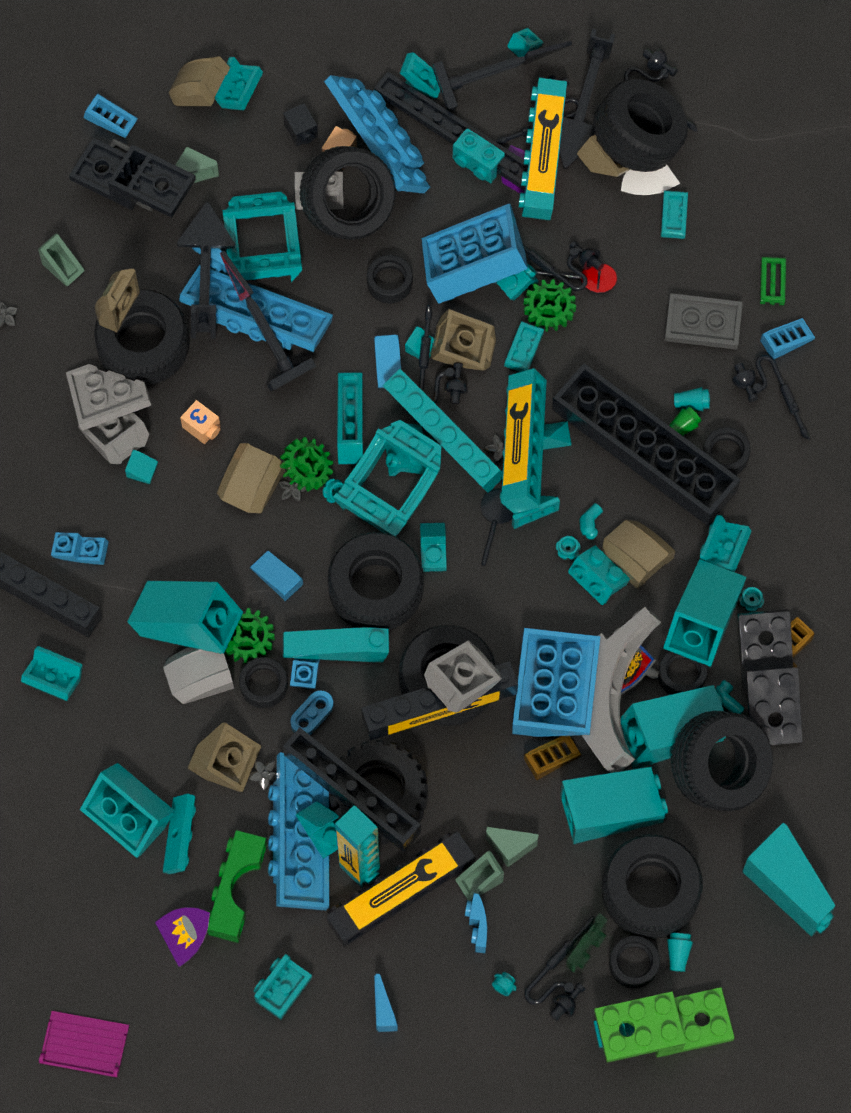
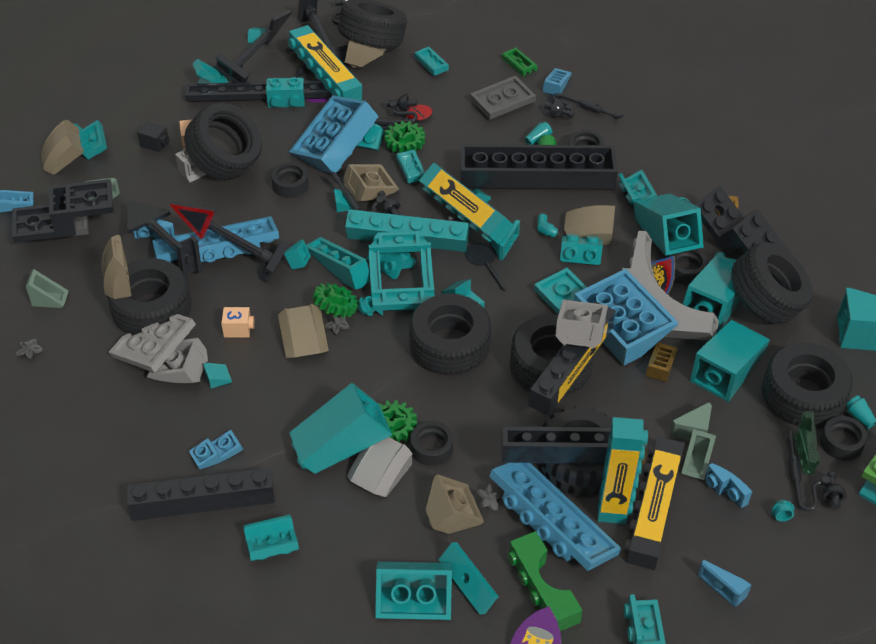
camera: 40 degrees left, 20 degrees down
(271, 264) = (172, 184): teal wedge -> none
(277, 575) = (377, 376): dark azure slope -> none
(304, 673) = (448, 413): dark azure slope -> none
(310, 713) = (484, 441): dark azure plate -> none
(319, 383) = (297, 255): none -> teal slope
(319, 826) = (562, 497): teal slope -> none
(338, 644) = (463, 383): teal slope -> none
(380, 132) = (193, 104): dark azure plate -> none
(387, 357) = (329, 219): dark azure slope -> none
(531, 608) = (558, 288): none -> teal plate
(568, 541) = (547, 246): teal plate -> none
(649, 182) = (396, 57): white sticker -> none

